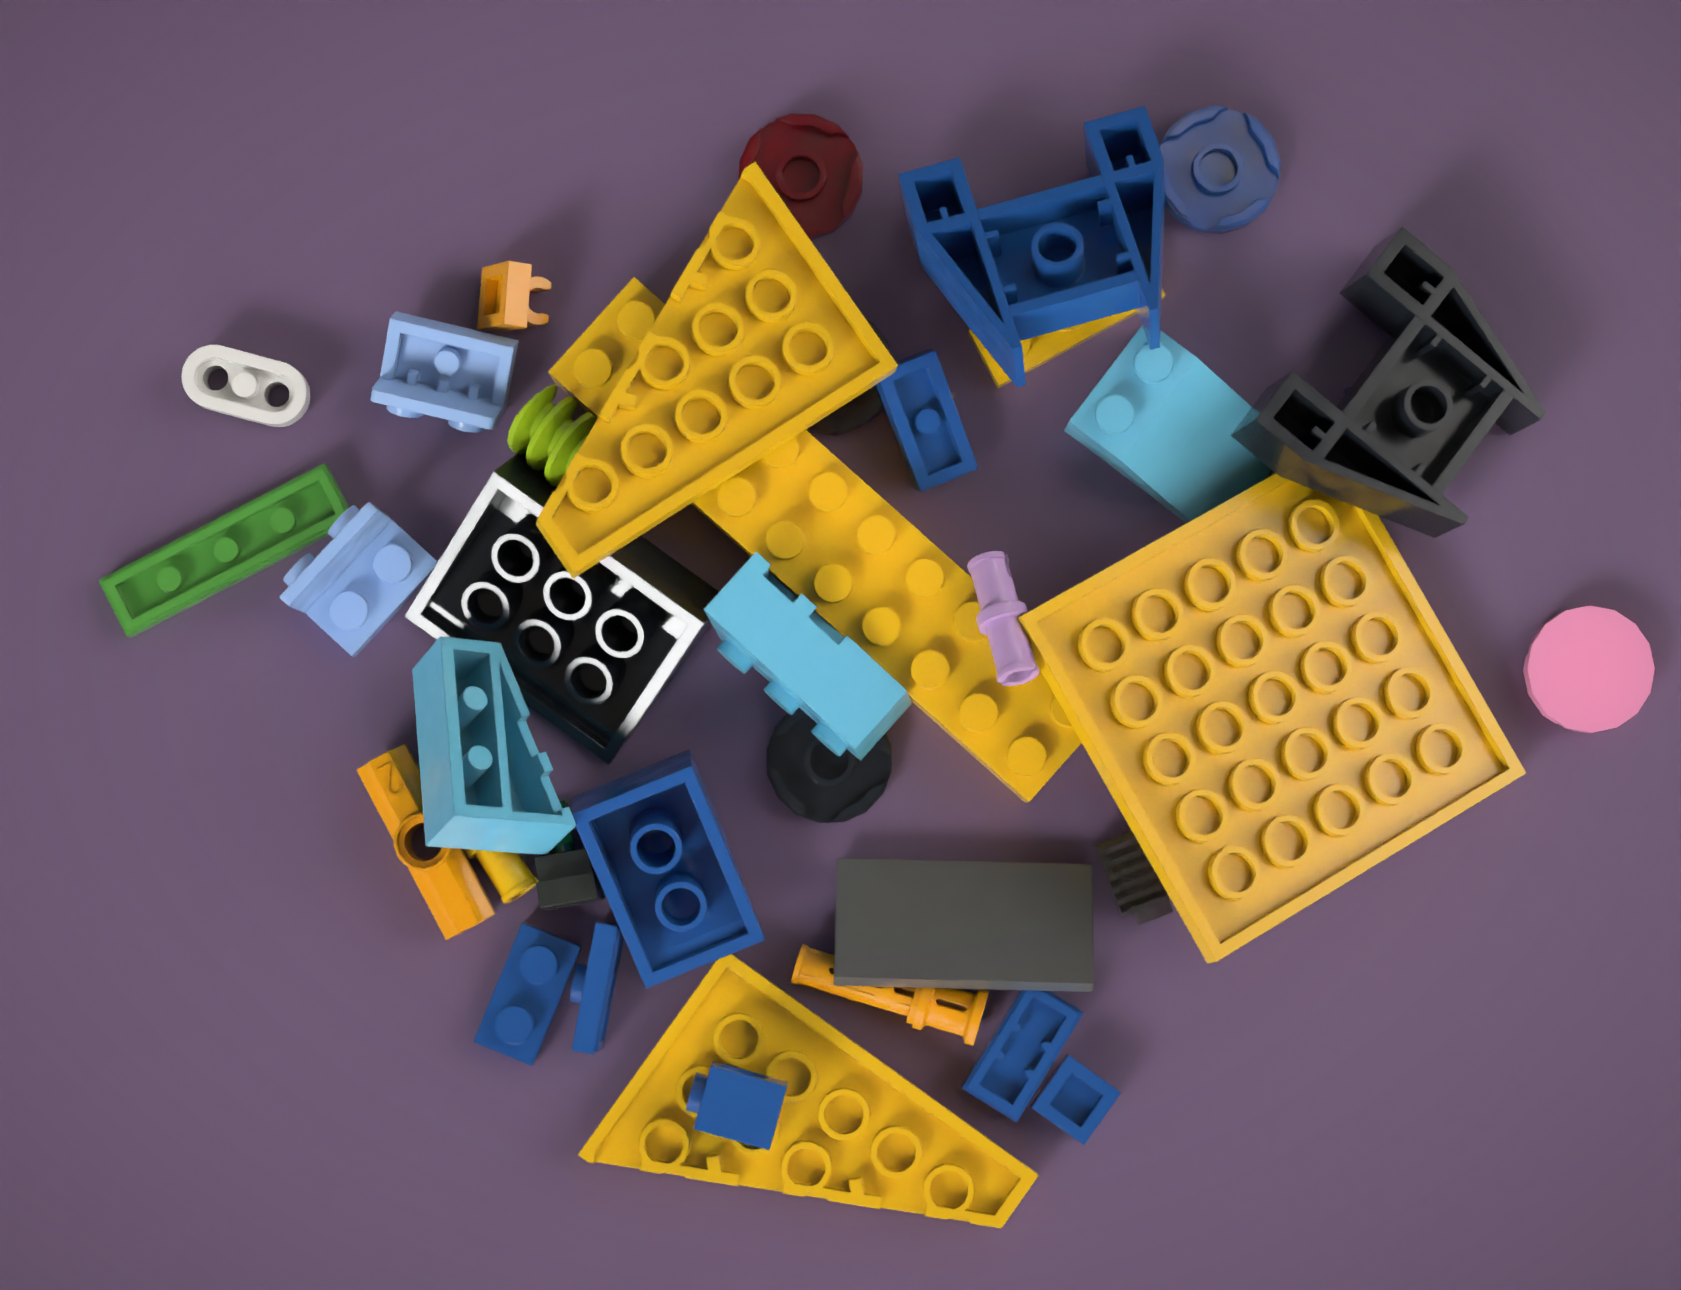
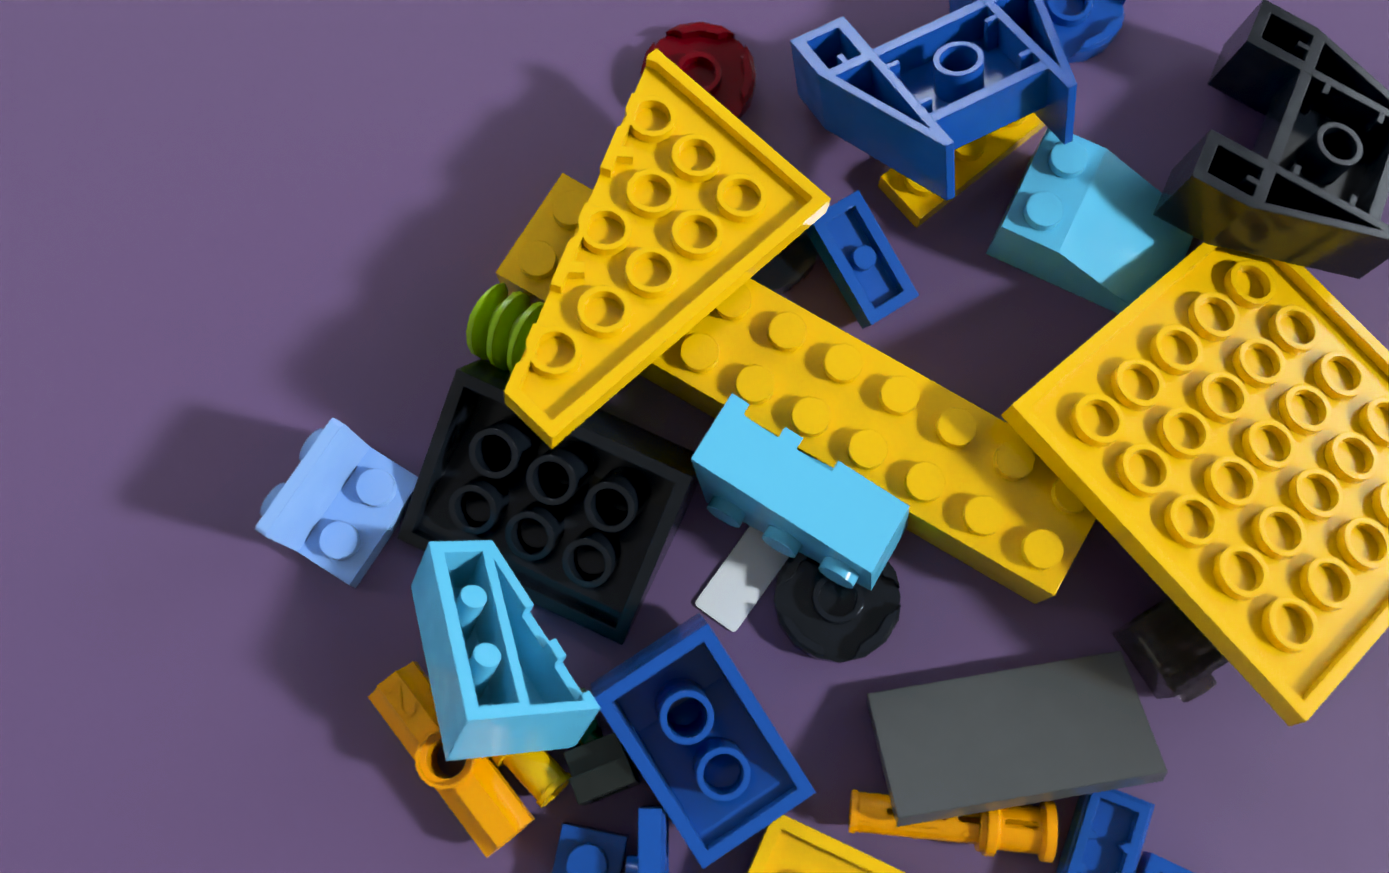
camera: 10 degrees left, 10 degrees down
(224, 551) = (202, 514): bright green tile -> none
(247, 386) = (216, 351): white plate -> none
(445, 373) = (400, 300): light blue bracket -> none
(506, 295) = (446, 224): light orange tile -> none
(737, 724) = (741, 580): none -> white sticker
(1000, 619) = (989, 415): lavender pin -> none

